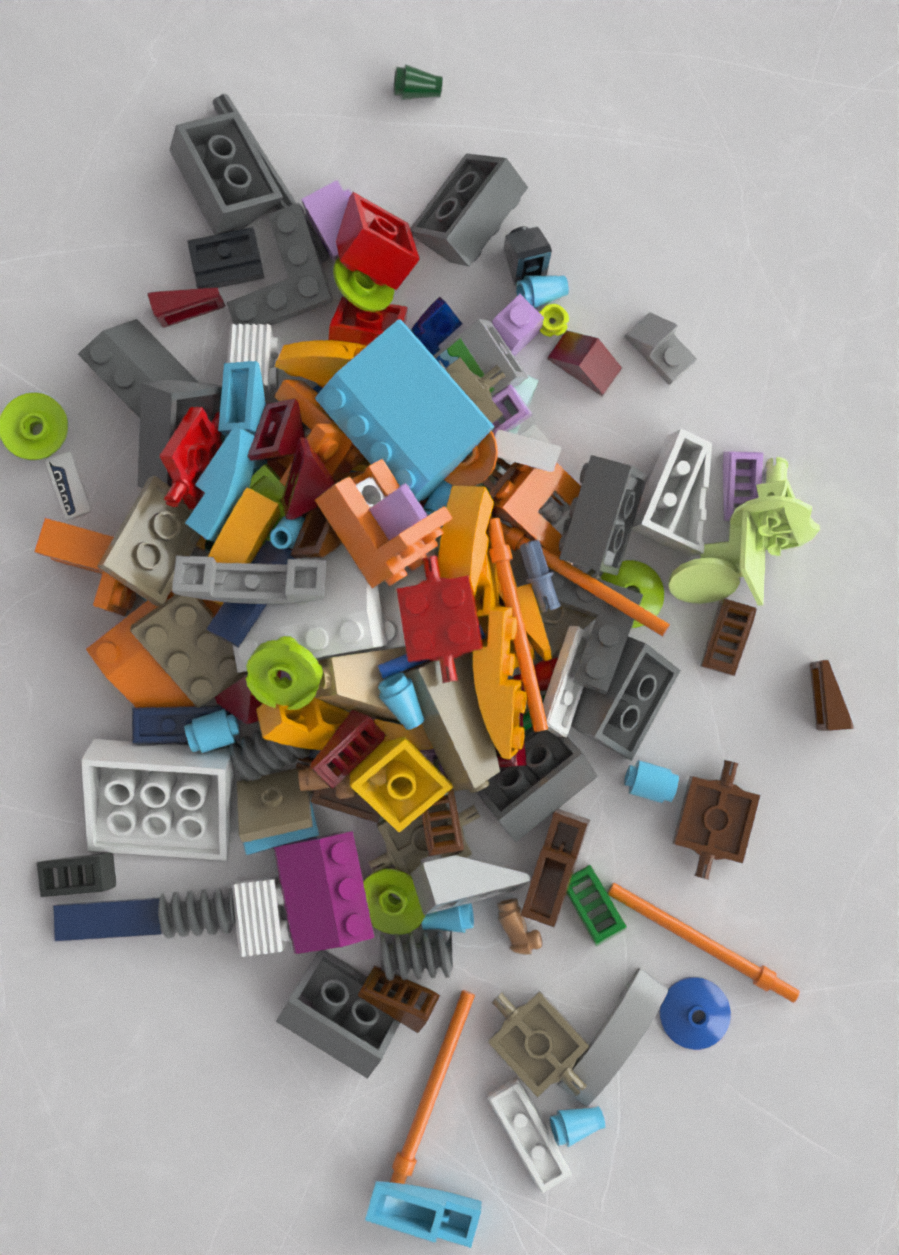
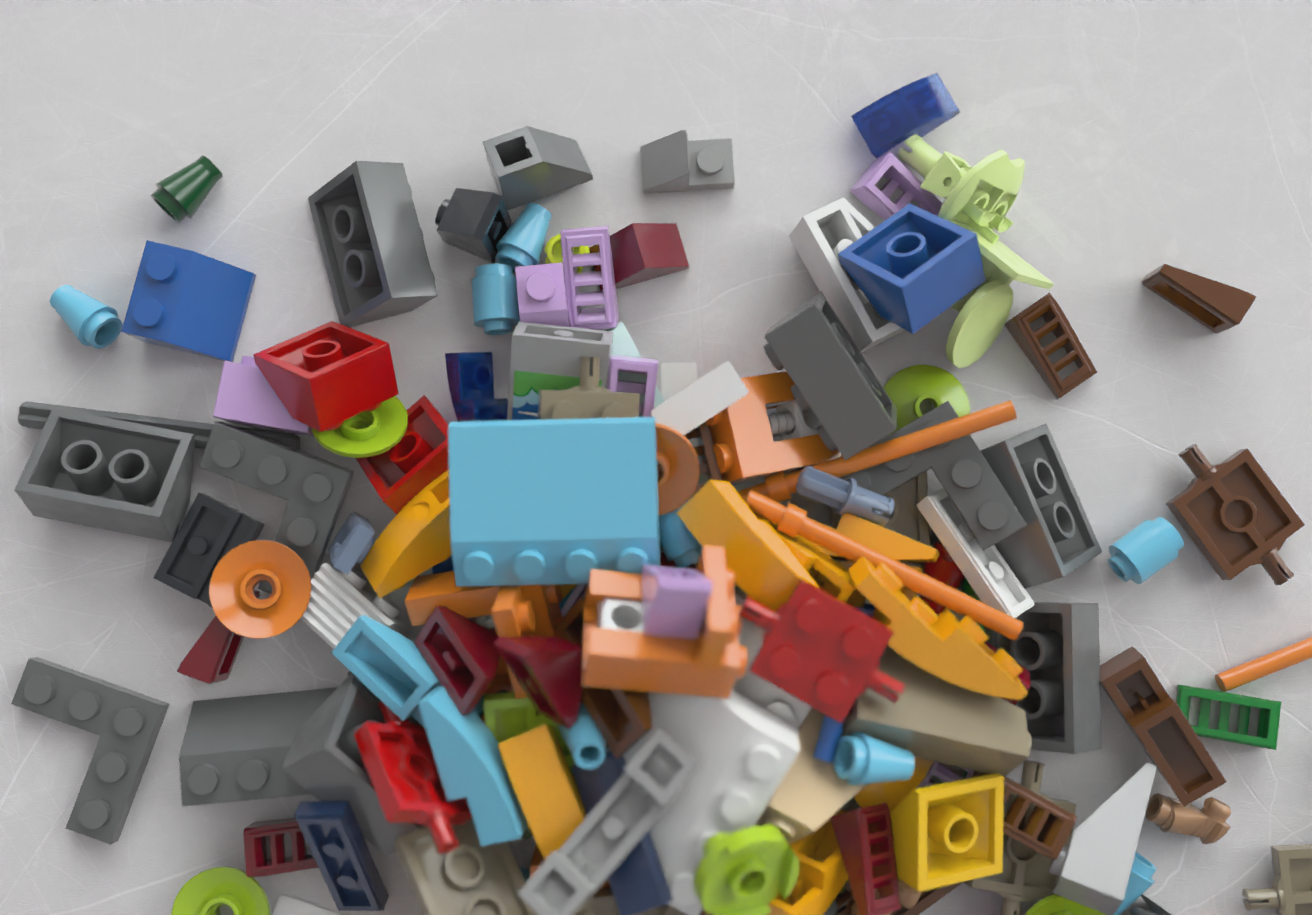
camera: 55 degrees left, 0 degrees up
(84, 416) = (256, 853): none -> dark red slope
(91, 298) = (127, 732): none -> dark grey plate
(119, 461) = (342, 855): none -> dark blue tile
(225, 283) = (234, 585): none -> orange dish
(292, 330) = (351, 543): none -> sand blue plate
(300, 89) = (86, 317): none -> medium azure cone
(353, 135) = (188, 302): none -> blue slope
(493, 298) = (495, 299): none -> medium azure brick
(529, 344) = (598, 317): none -> lavender slope
(588, 260) = (534, 165): none -> dark grey slope
(703, 512) = (914, 266): none -> blue slope
(798, 445) = (904, 112): none -> clear blue slope

